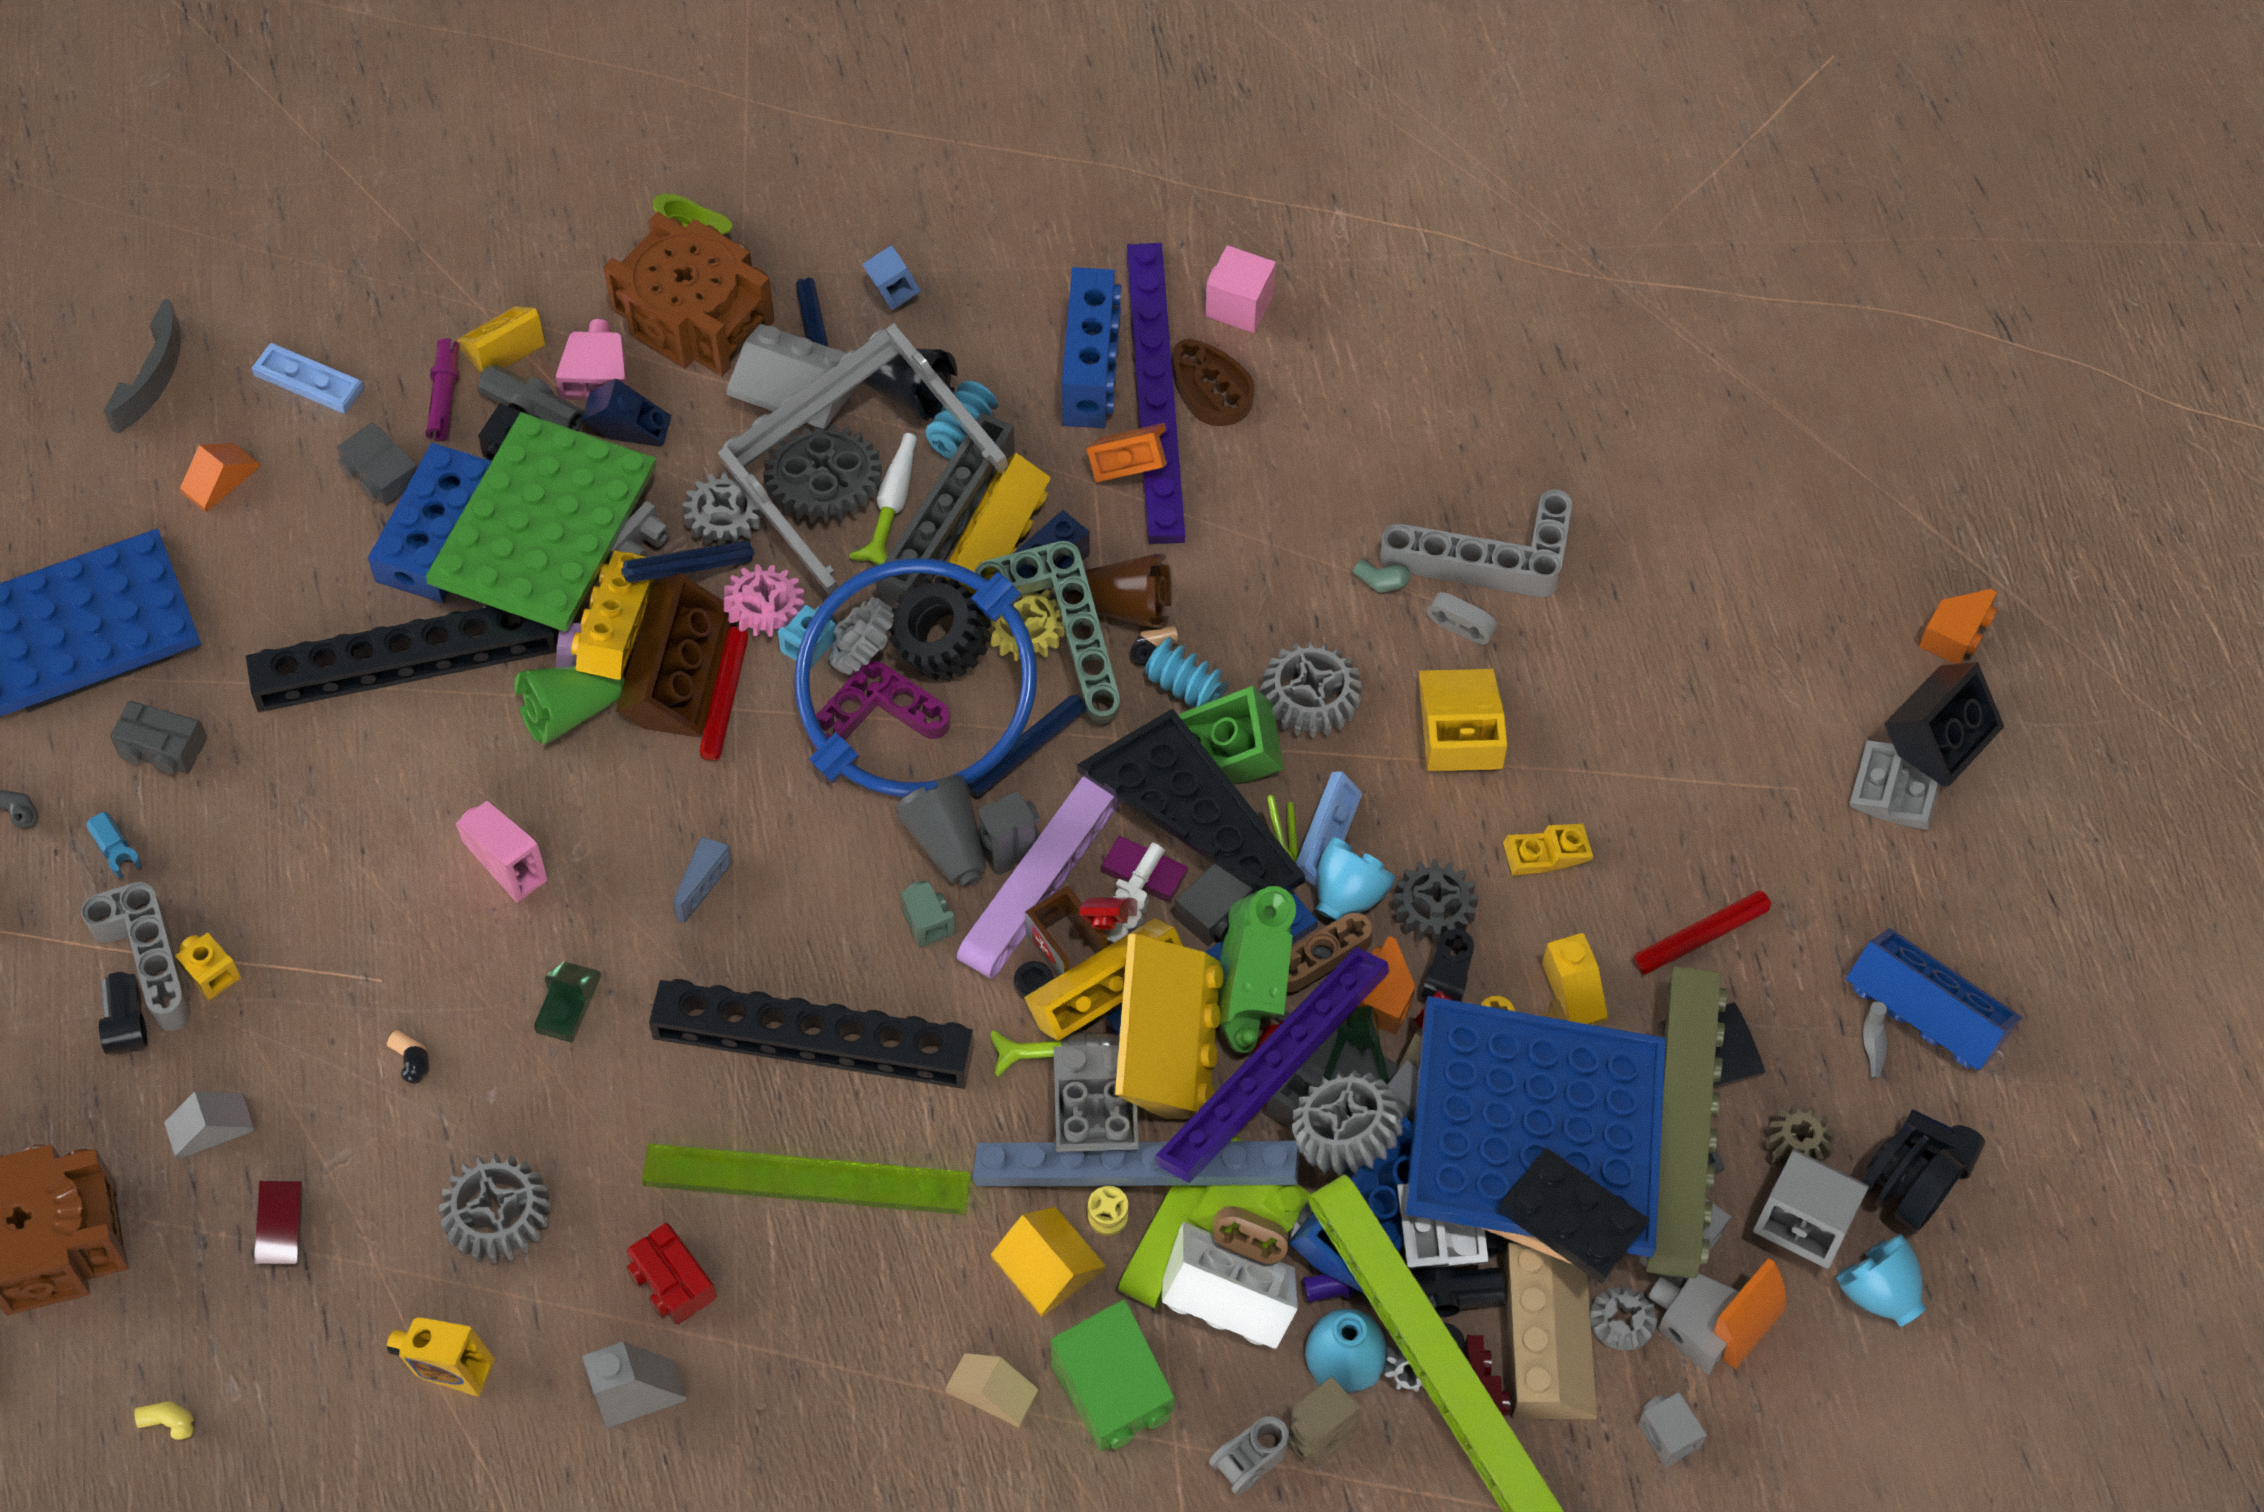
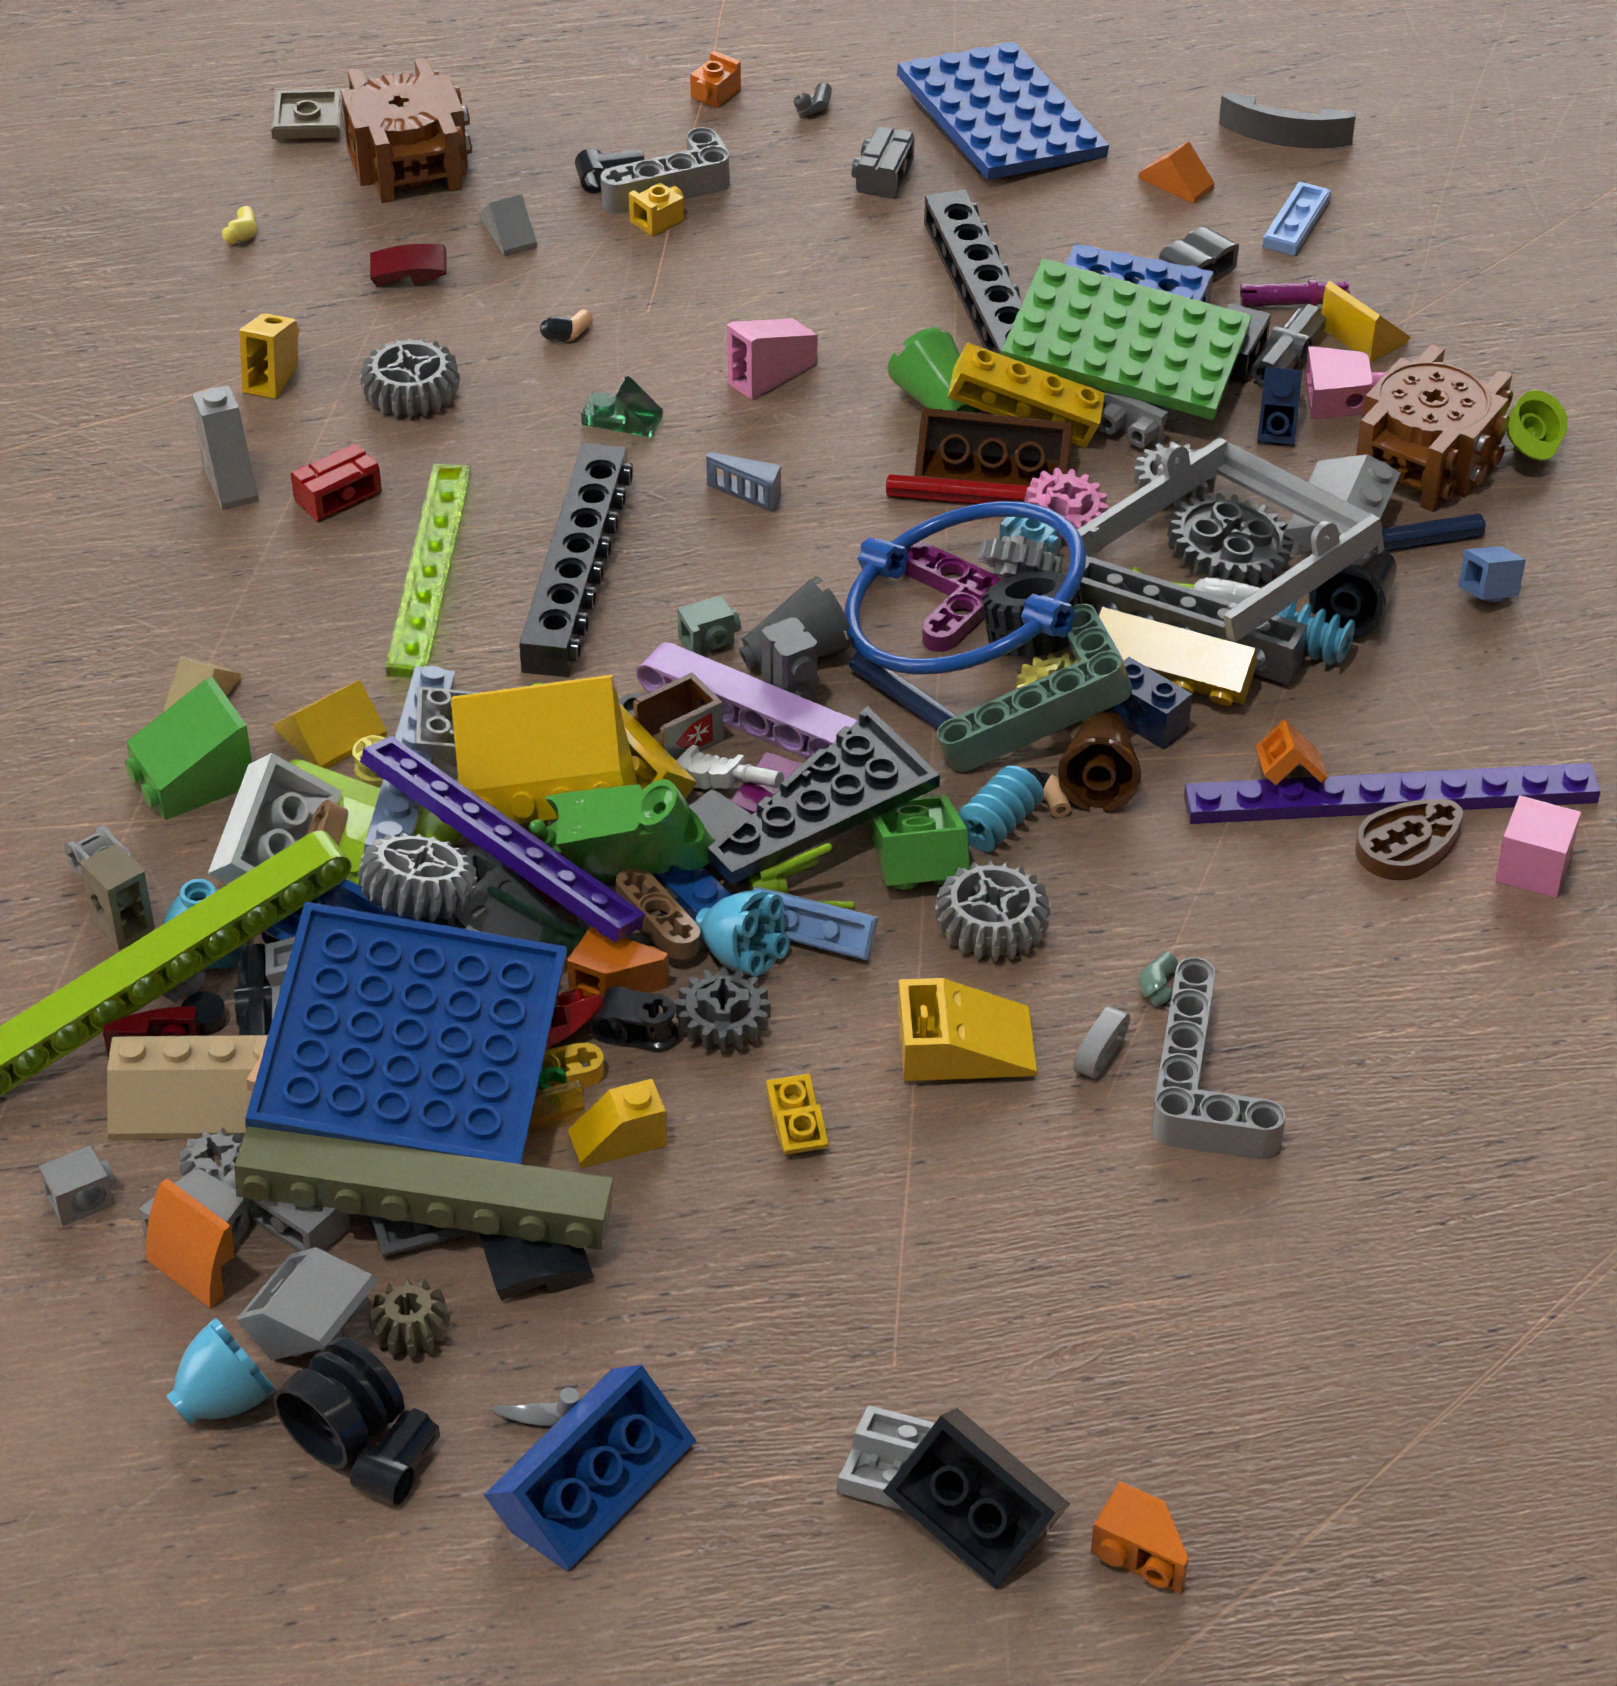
camera: 90 degrees right, 15 degrees down
(112, 842) = (779, 152): dark azure bar -> none
(687, 561) = (1095, 437): dark blue axle -> none
(1085, 385) = (1421, 715): blue brick -> none
(1107, 911) = (690, 721): red slope -> none
(1573, 1215) = (284, 1039): black plate -> none
(1702, 932) = (688, 1252): red axle -> none

